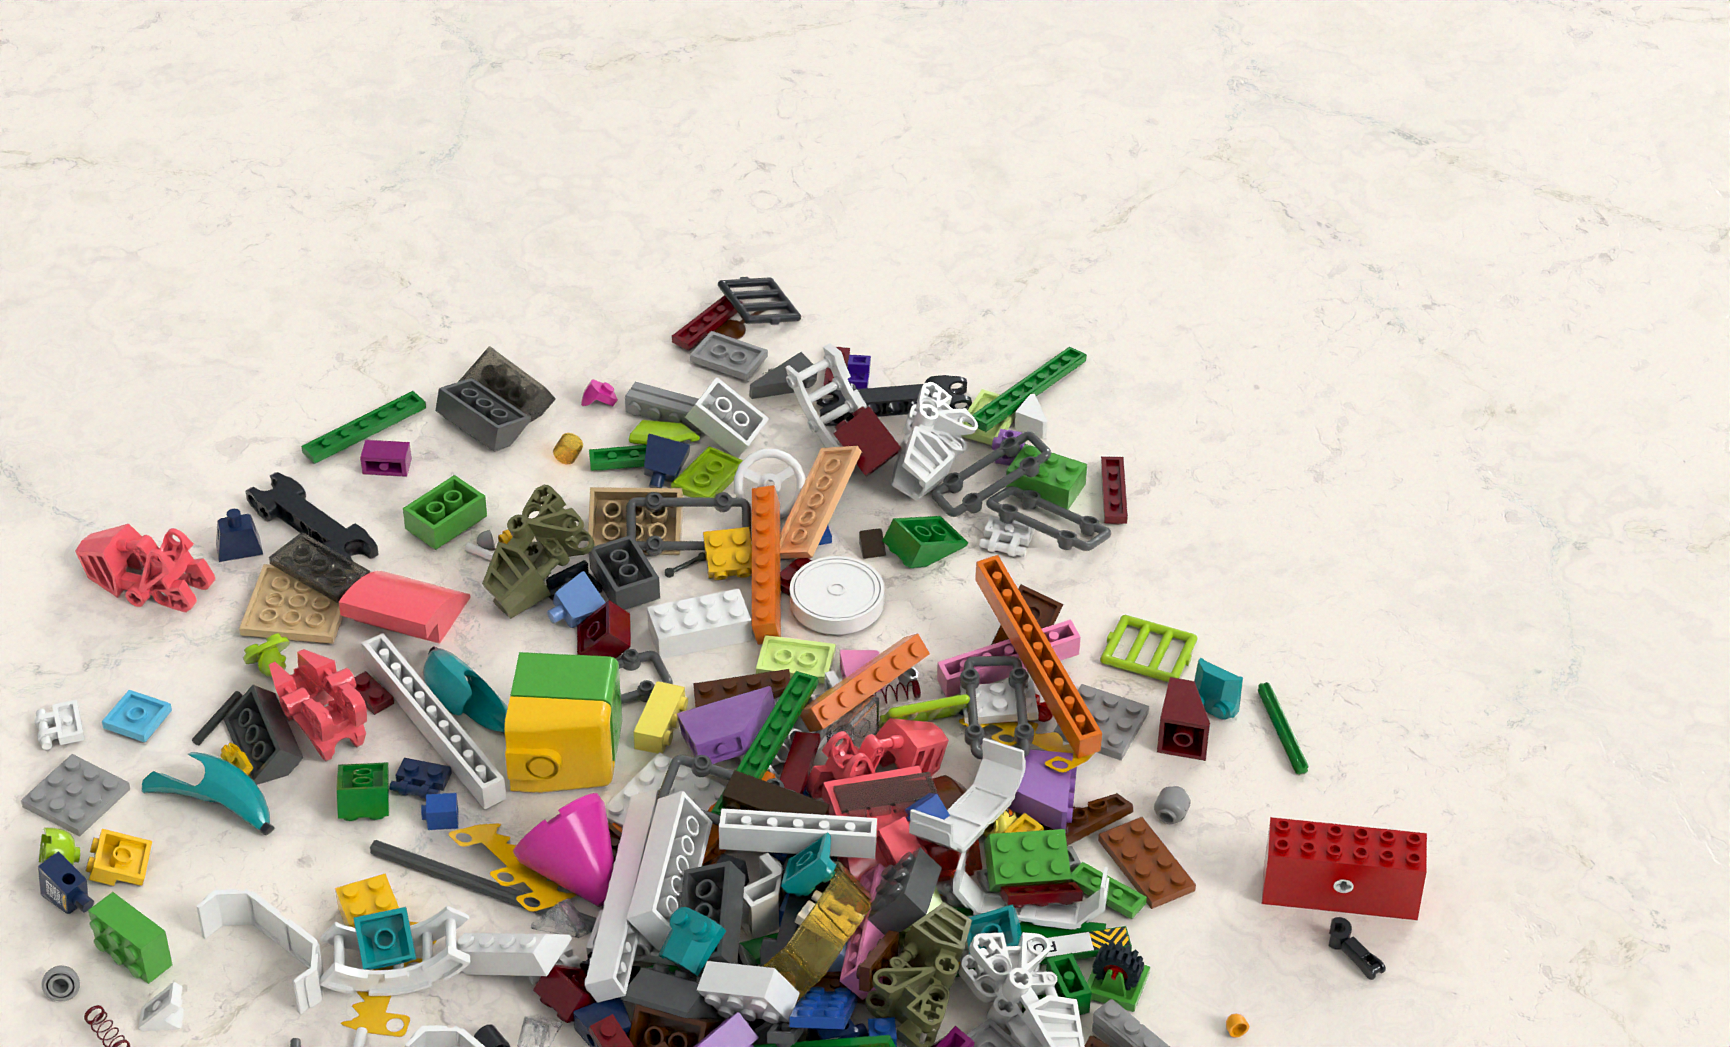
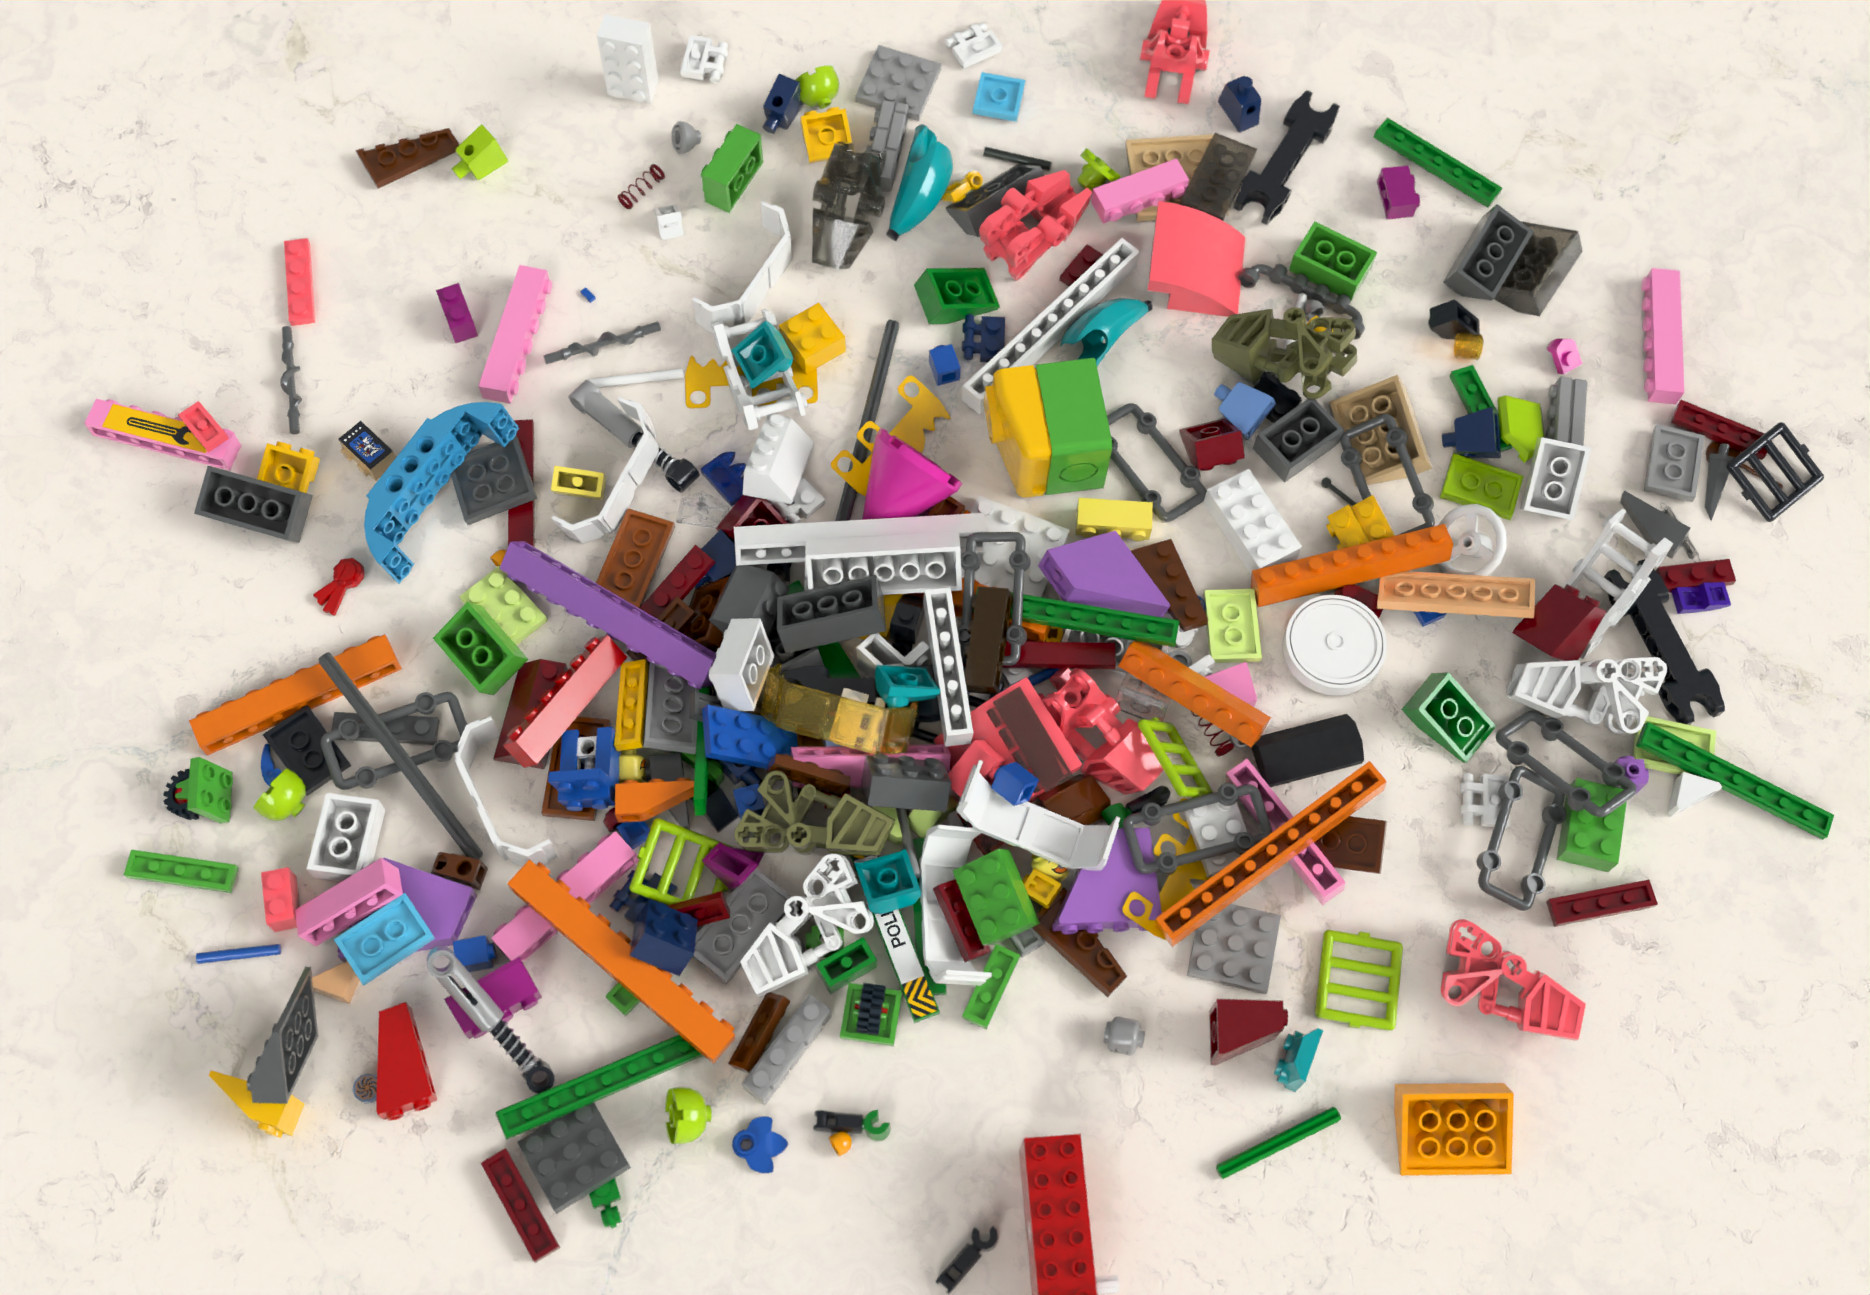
camera: 75 degrees right, 25 degrees up
(155, 813) = (889, 136): none -> light grey brick
(199, 818) = (834, 236): none -> clear smoke piece
(311, 618) = (1139, 191): none -> bright pink brick
(434, 574) = (1298, 285): none -> dark grey bar
(508, 1007) = (725, 477): none -> clear blue plate
(538, 453) = (1452, 318): none -> black slope
(562, 919) = (829, 498): clear slope -> none
(605, 331) = (1663, 336): none -> bright pink brick
(691, 939) = (793, 601): teal slope -> none
(746, 334) = (1716, 478): none -> dark grey bar
(871, 543) = (1427, 663): dark brown slope -> none
(932, 619) = (1308, 750): none -> black piece
(962, 767) = (1159, 796): none -> piece
(1147, 862) = (1043, 1022): dark orange plate -> none
(1177, 549) = (1542, 1002): none -> coral piece
(1219, 1011) = (852, 1124): none -> black piece
(1287, 616) = (1454, 1128): none -> light orange slope

